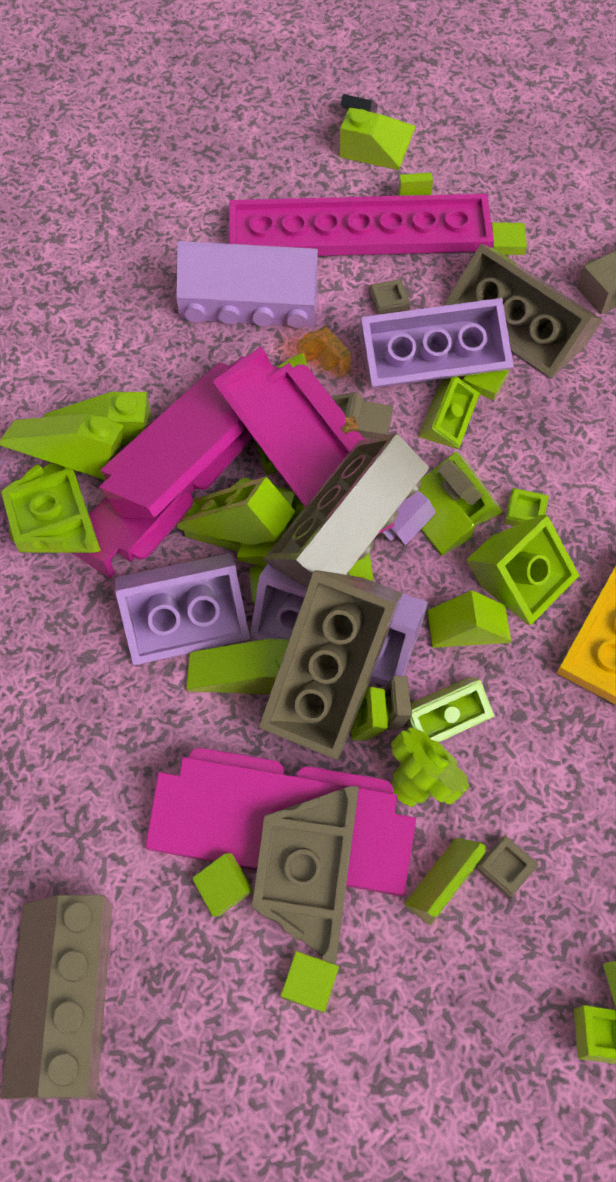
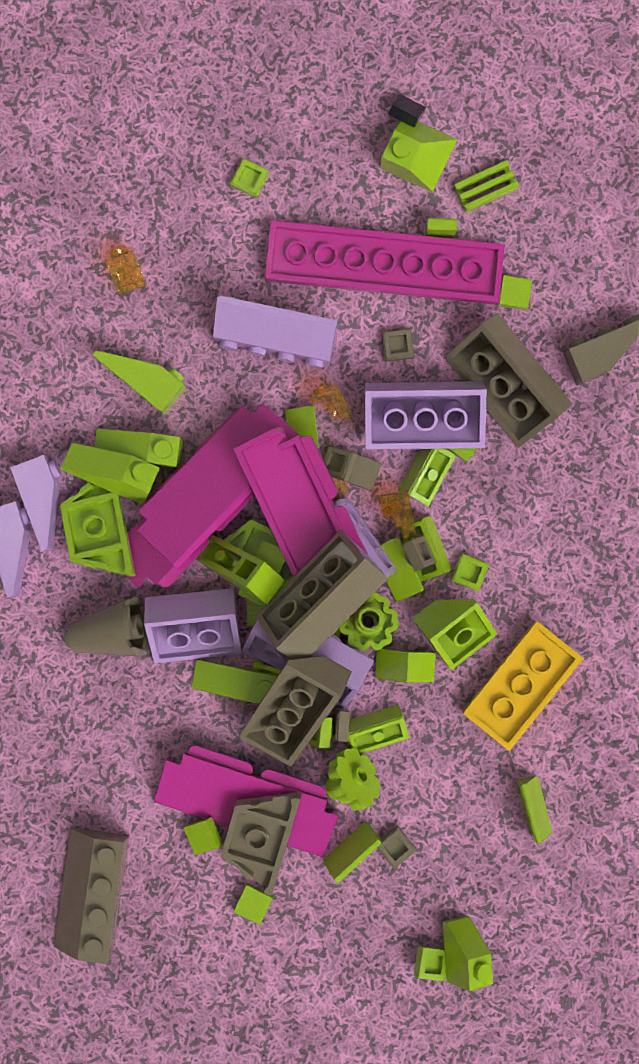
camera: 10 degrees right, 25 degrees up
(71, 259) = (124, 269): none -> clear yellow bracket
(71, 621) = (110, 631): none -> dark tan cone
(98, 352) = (149, 380): none -> lime slope
(202, 176) = (249, 178): none -> lime tile
(413, 571) = (379, 634): none -> lime plant
(427, 442) = (398, 506): none -> clear yellow bracket
(451, 154) = (508, 175): none -> lime tile

